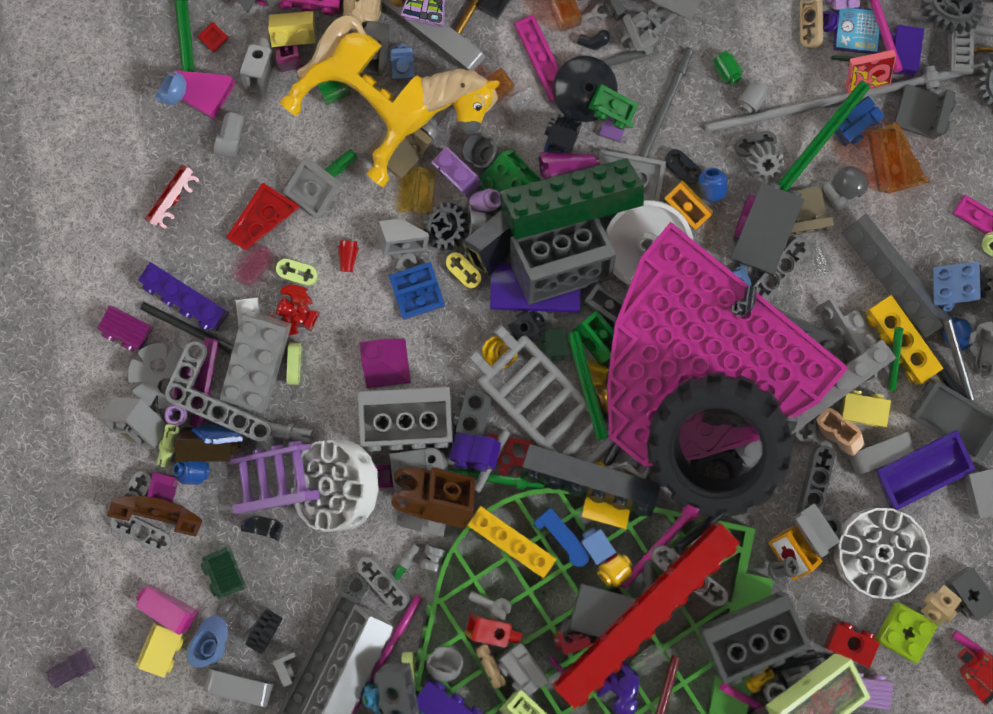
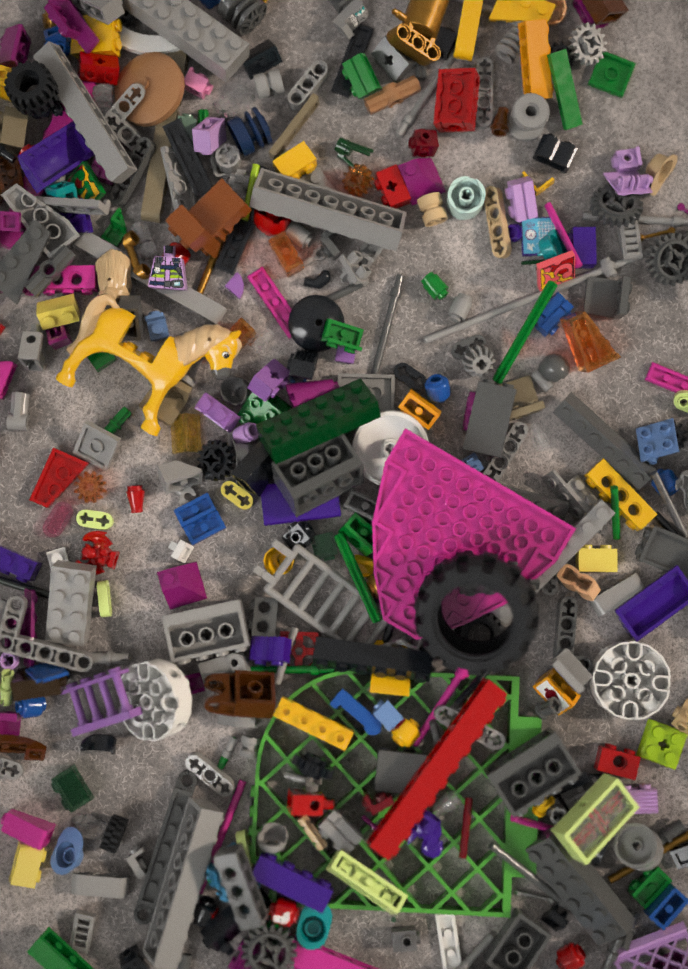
camera: 10 degrees left, 0 degrees up
(294, 242) = (90, 479): none -> clear orange gear
(390, 323) = (181, 550): none -> white tile
(499, 31) = (236, 285): none -> medium lavender tile
(504, 589) = (313, 766): none -> black gear
(522, 145) = (269, 380): none -> medium lavender brick
(745, 304) = (480, 488): black arm -> none
(869, 41) = (551, 245): none -> teal piece

